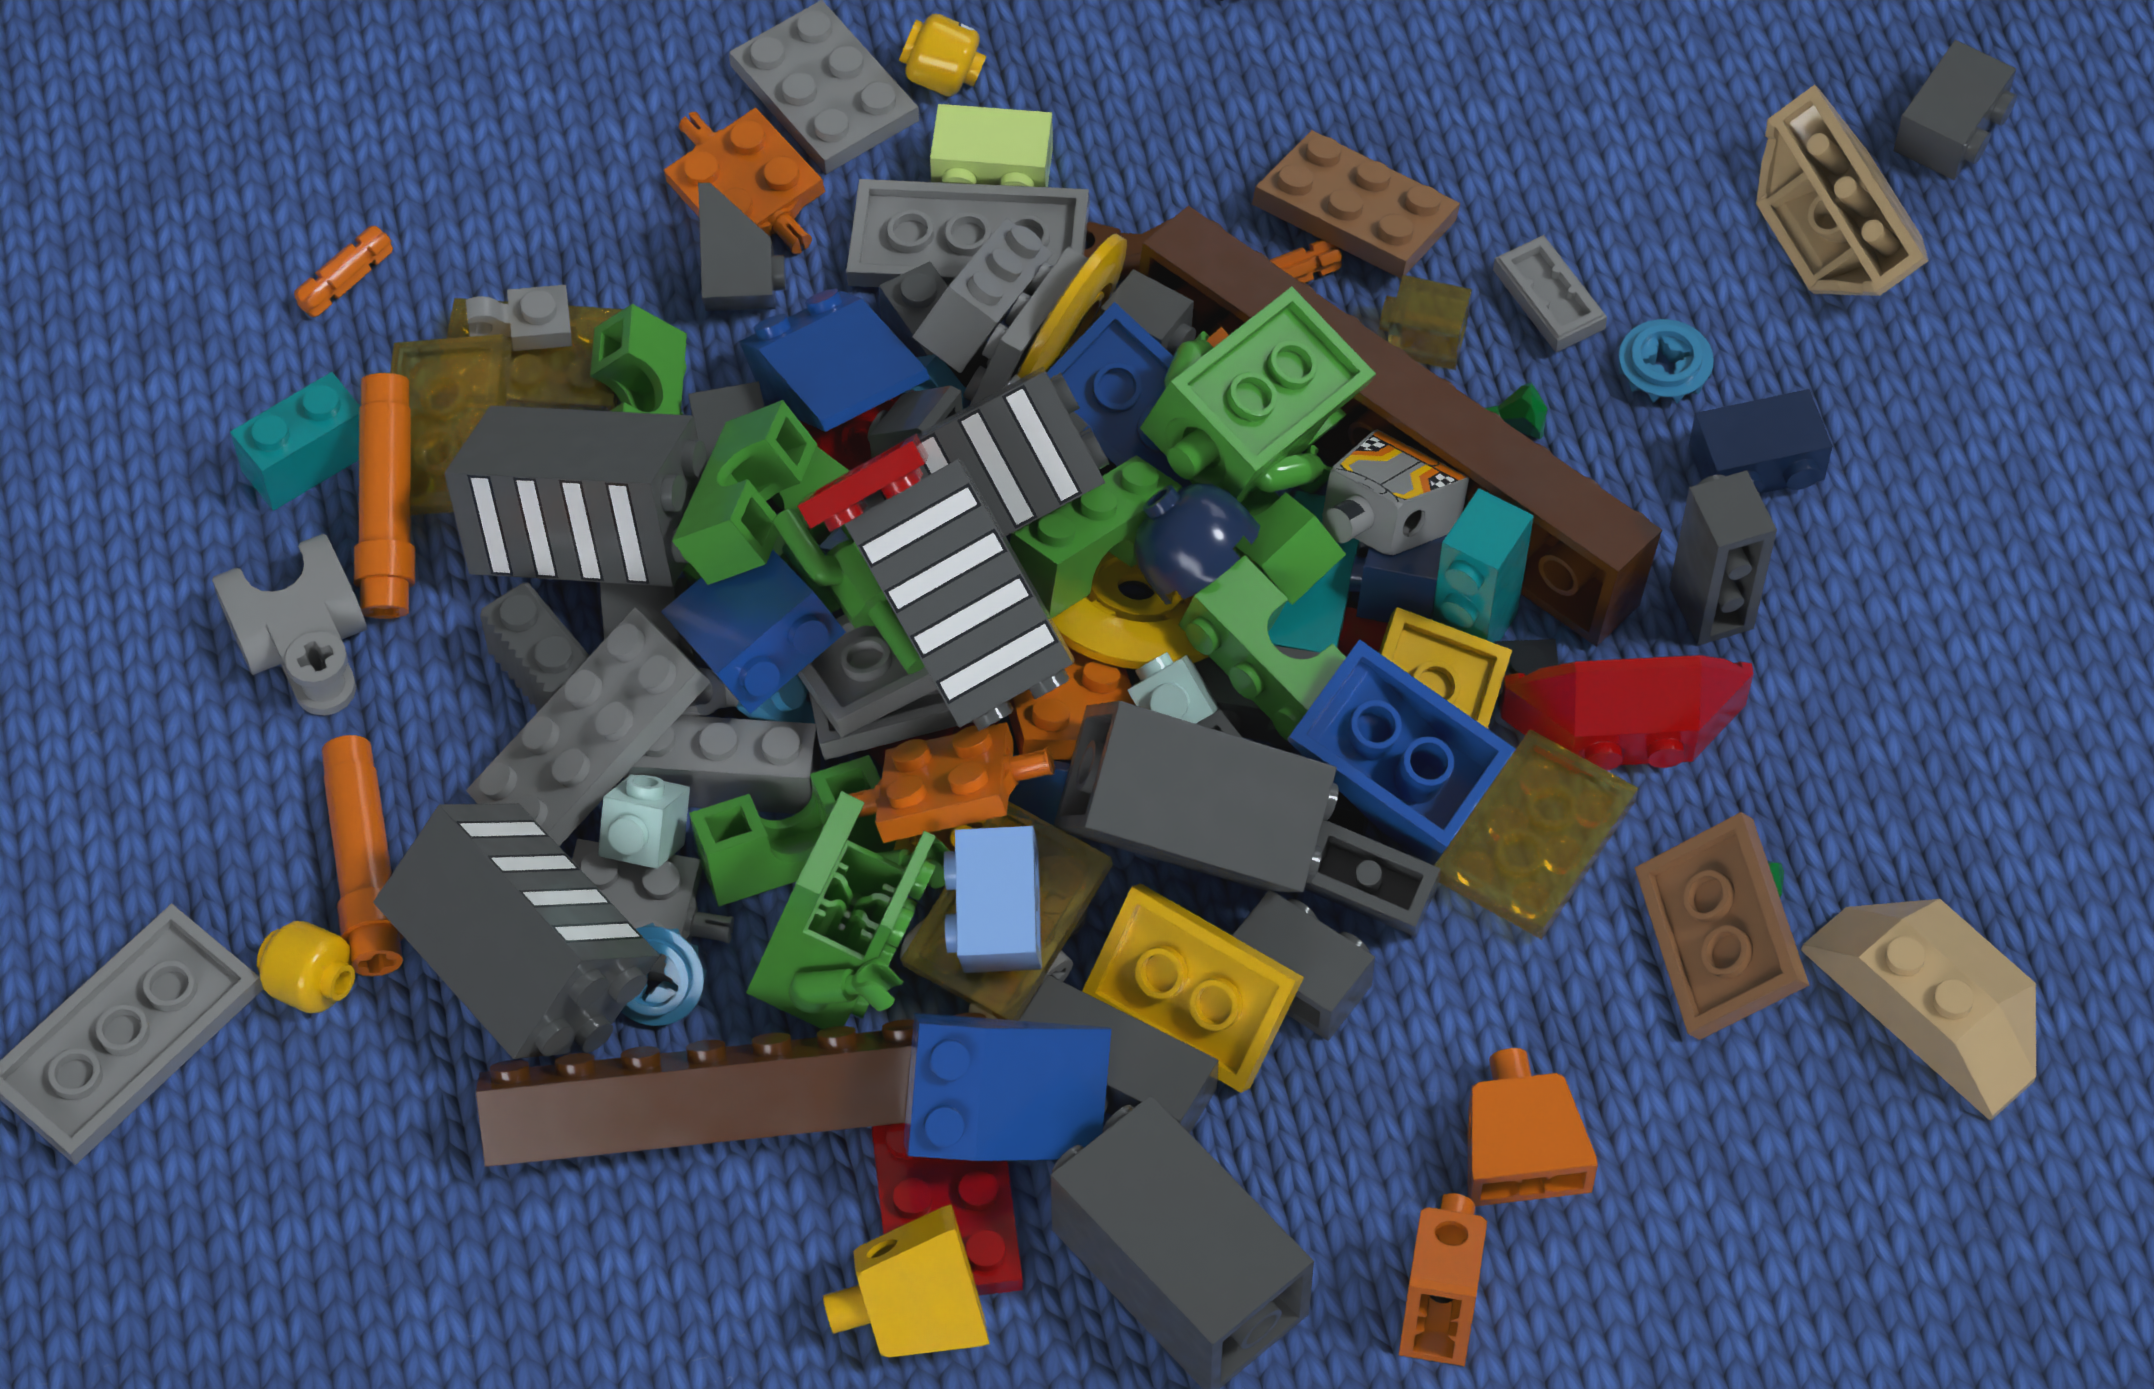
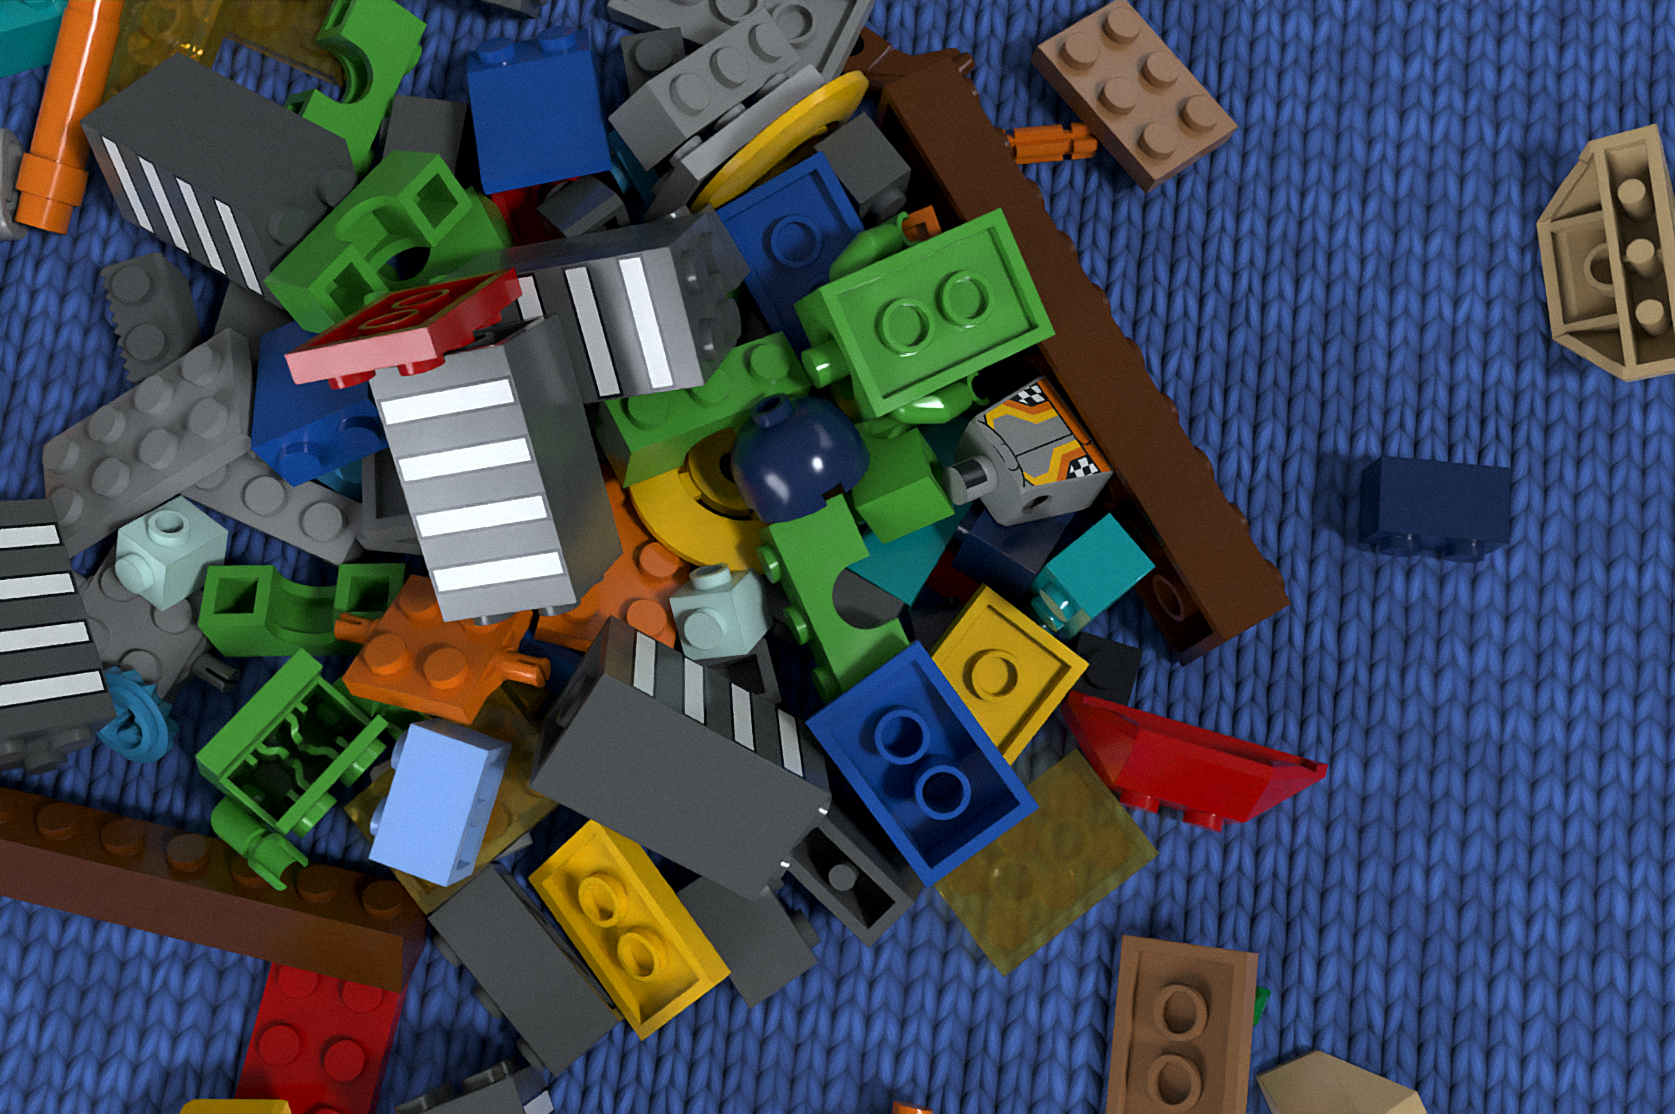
camera: 20 degrees right, 20 degrees up
(1004, 1088) = (378, 994): blue slope -> none
(1427, 320) = (1152, 249): clear yellow brick -> none
(1524, 411) = (1206, 383): green rock -> none
(1549, 293) = (1288, 258): light grey plate -> none
(1680, 345) = (1396, 355): dark azure gear -> none
(1722, 557) = (1347, 642): dark grey brick -> none

